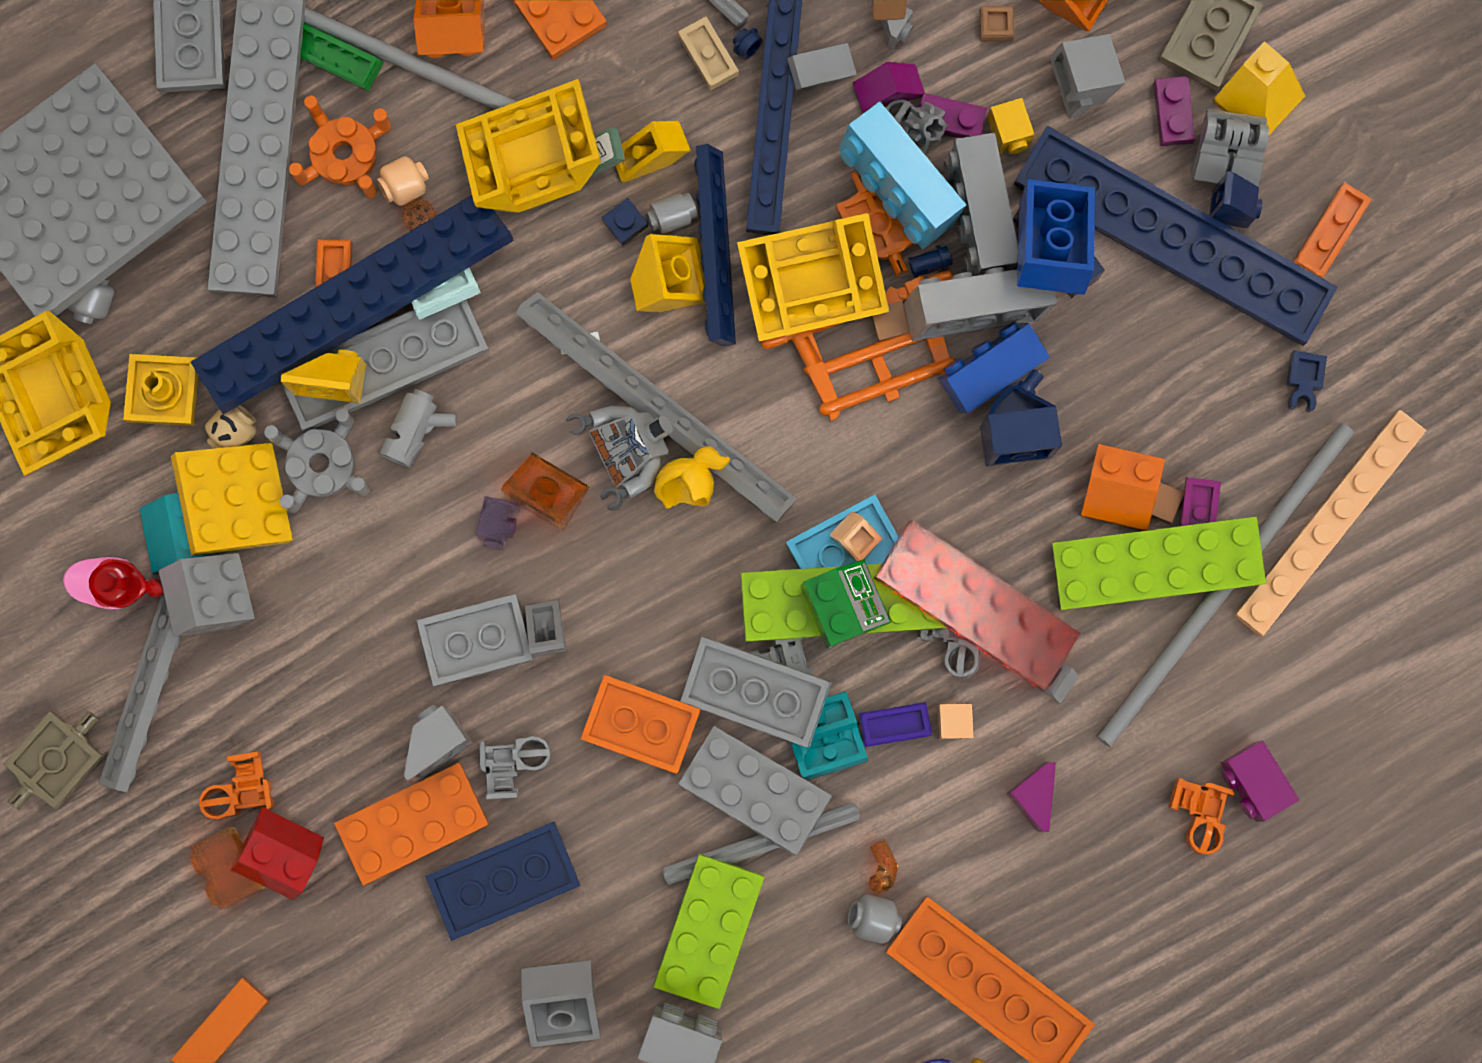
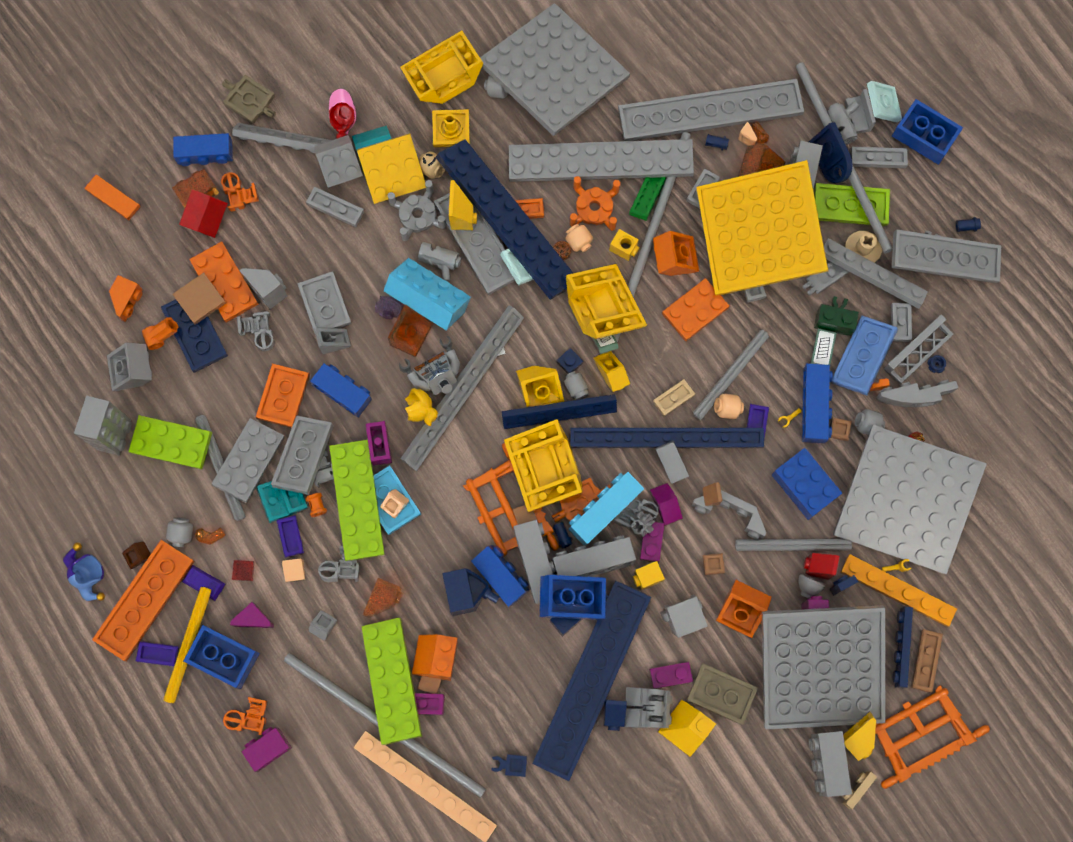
camera: 90 degrees right, 5 degrees down
(146, 851) = (202, 149): none -> blue brick
(290, 610) = (335, 207): none -> light grey plate
(421, 1009) = (124, 296): none -> orange slope
(426, 119) = (620, 238): none -> yellow brick
(444, 866) = (199, 298): none -> medium nougat tile
(482, 450) = (427, 293): none -> medium azure brick
(504, 948) = (156, 335): none -> orange piece
(640, 618) = (341, 389): none -> blue brick
(746, 555) = (378, 443): none -> magenta brick
(747, 42) = (683, 419): dark blue plate -> none
(845, 603) = (351, 496): green slope -> none
(845, 675) = (316, 505): none -> orange bush
(906, 999) = (136, 554): none -> reddish brown slope
(948, 811) = (243, 570): none -> clear red tile
(964, 881) = (197, 578): none -> dark purple tile
(977, 605) = (357, 574): clear red plate -> none
(1018, 568) = (382, 598): none -> clear orange slope
(1073, 911) = (190, 635): none -> yellow axle
(1084, 967) = (157, 653): none -> dark purple tile
(1102, 850) = (221, 657): none -> blue brick
(1332, 230) = (605, 777): orange tile -> none

